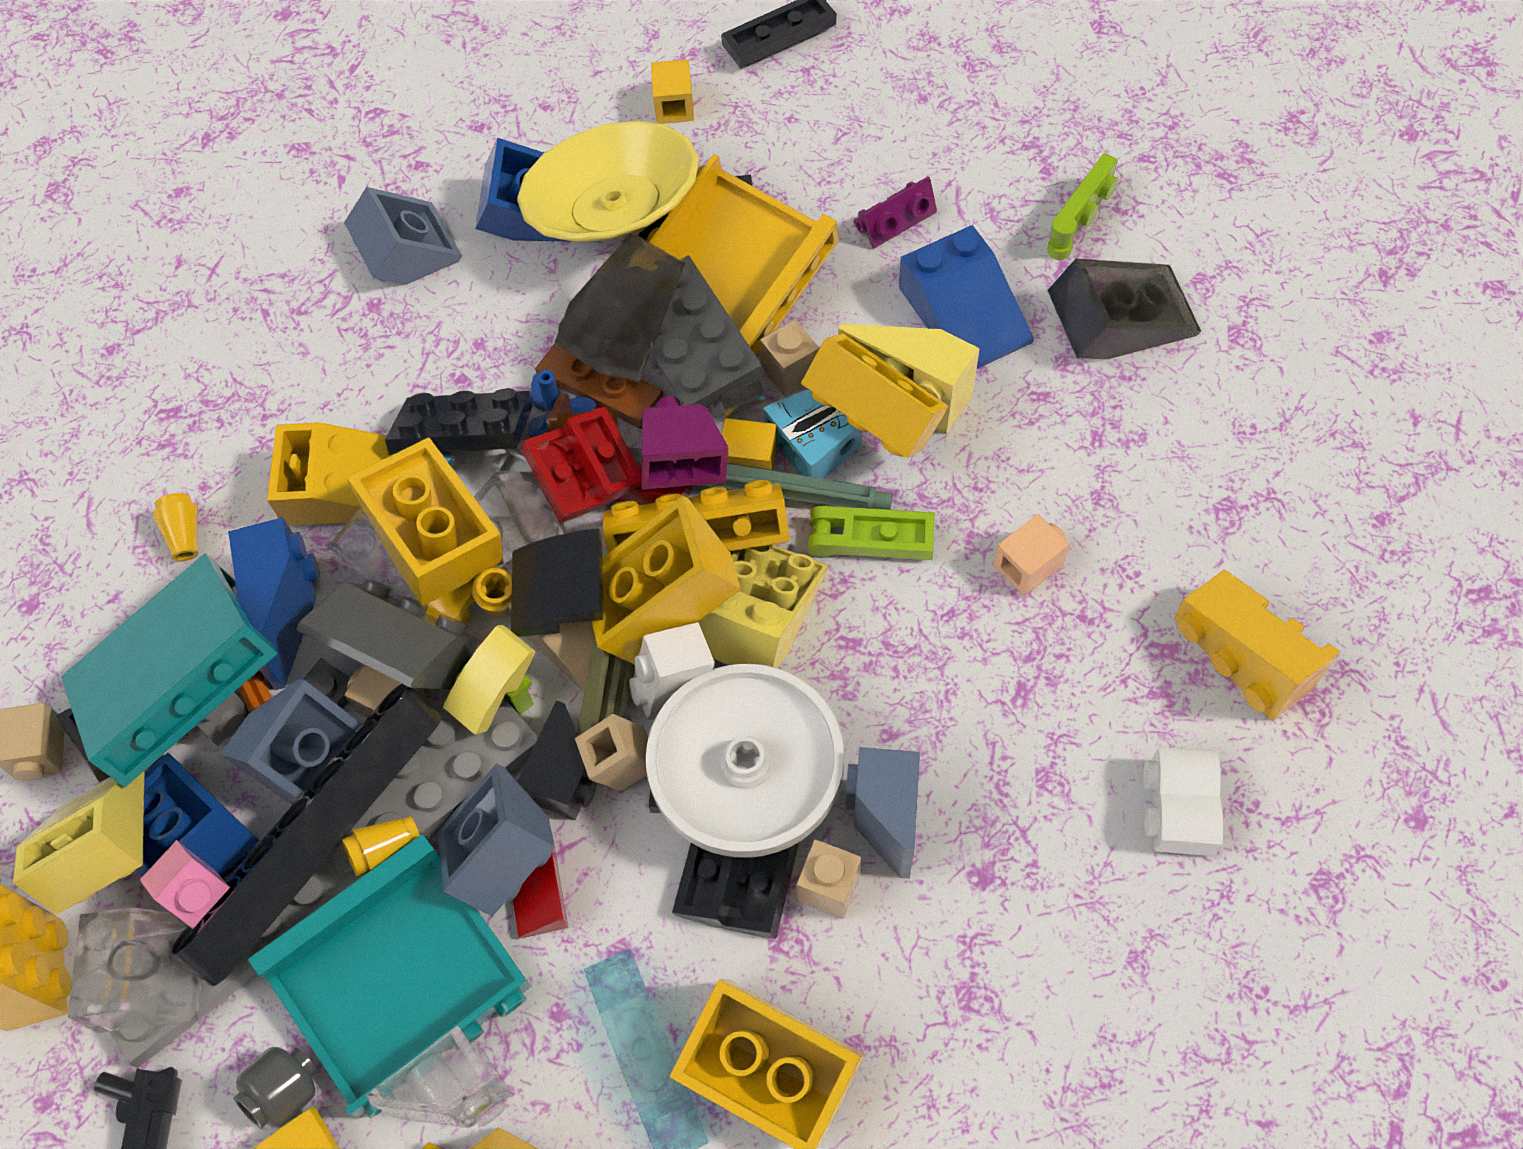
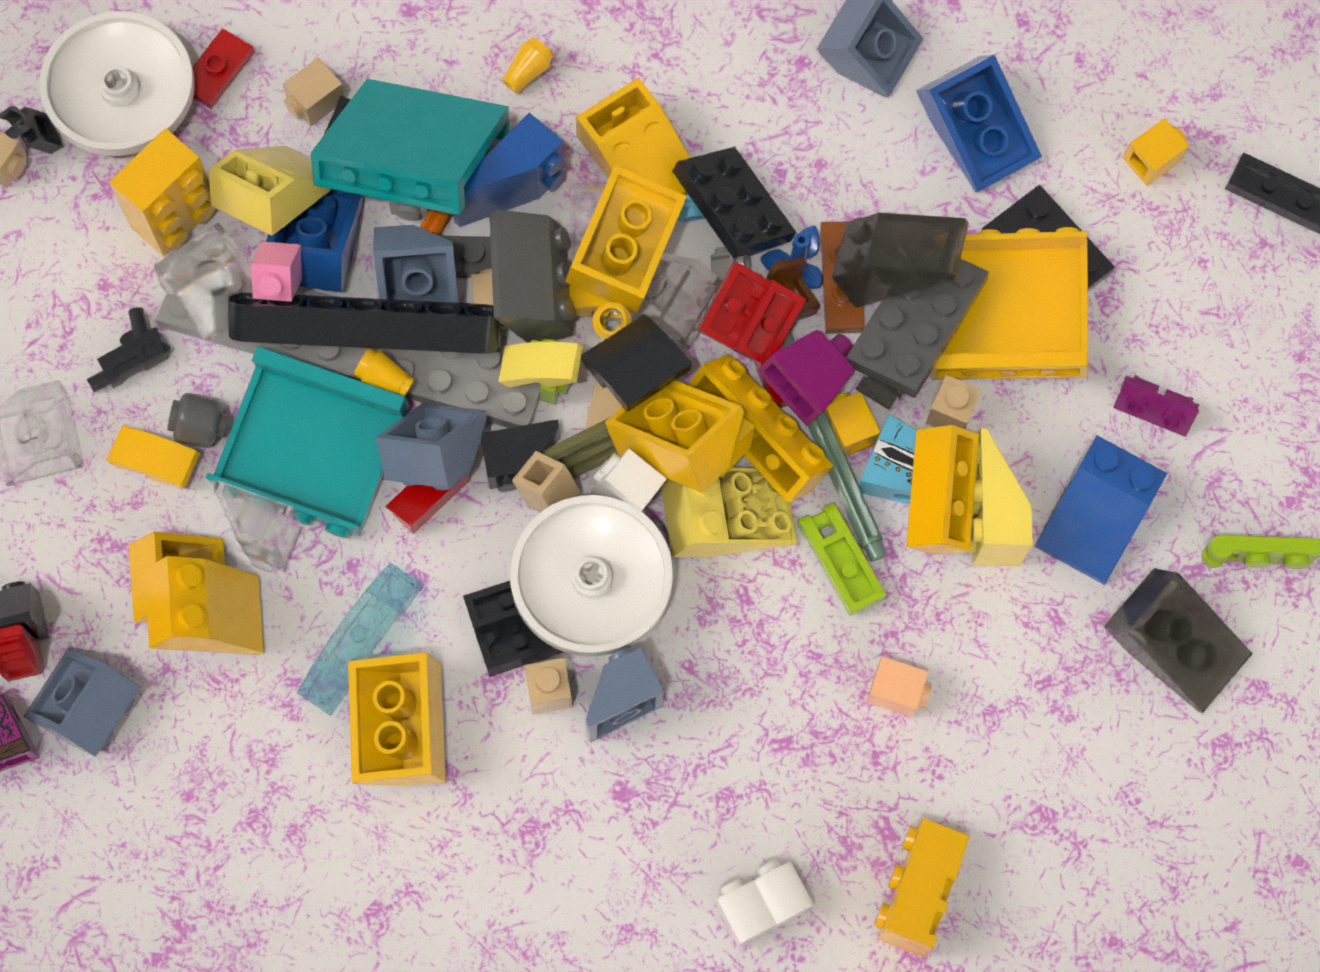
camera: 50 degrees right, 10 degrees up
(608, 181) = (1009, 167): light yellow dish -> none

